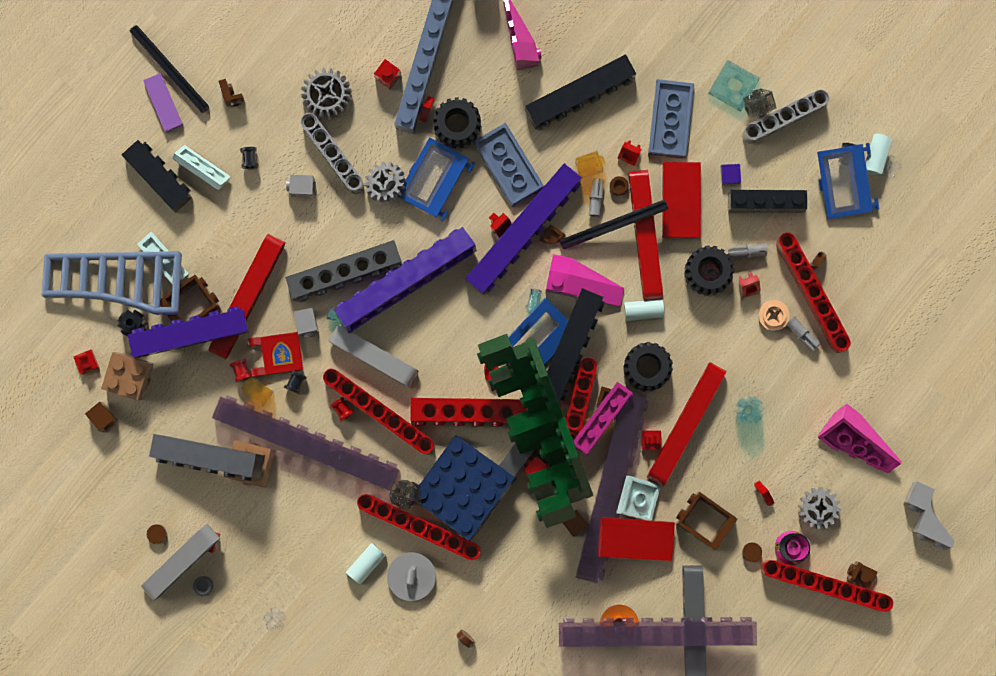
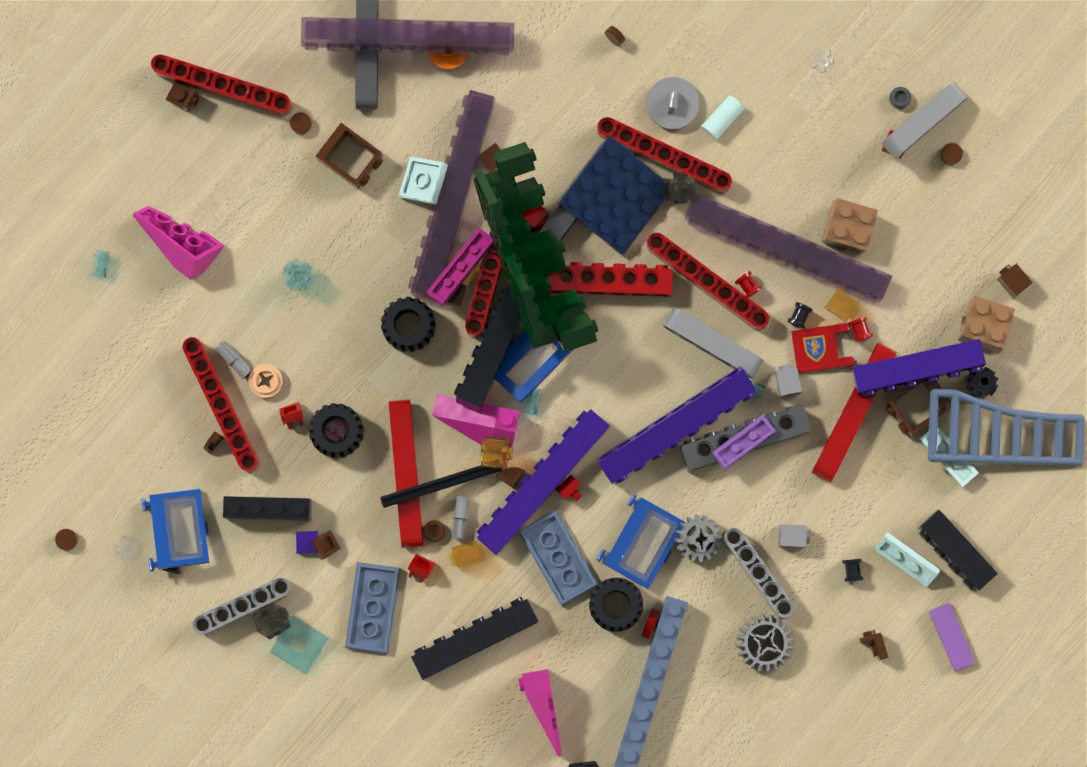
camera: 175 degrees left, 0 degrees up
(86, 361) = (1033, 343): red tile -> none
(171, 71) = (945, 676): black axle -> none
(206, 456) = (897, 231): black brick -> none
(345, 265) = (743, 442): none -> medium lavender tile
(387, 74) = (695, 663): red brick -> none
(566, 253) = (496, 452): none -> clear yellow brick
(636, 539) = (427, 136): red tile -> none
(644, 310) = (410, 389): light aqua brick -> none
(651, 439) = (406, 245): red tile -> none
(683, 196) = (363, 513): red tile -> none
(686, 424) = (367, 262): red beam -> none
(714, 171) = (325, 544): none -> reddish brown tile
(747, 251) = (291, 453): light grey axle -> none
(767, 498) = (285, 185): red tile -> none
(792, 547) = (256, 127): dark pink piece -> none
(819, 516) = (216, 168): light grey gear -> none
(879, 151) = (138, 562): light aqua brick -> none
(927, 418) = (101, 263): none -> clear light blue pin
(927, 525) = (108, 146): light grey arch -> none
(943, 172) = (66, 539): none -> reddish brown tile

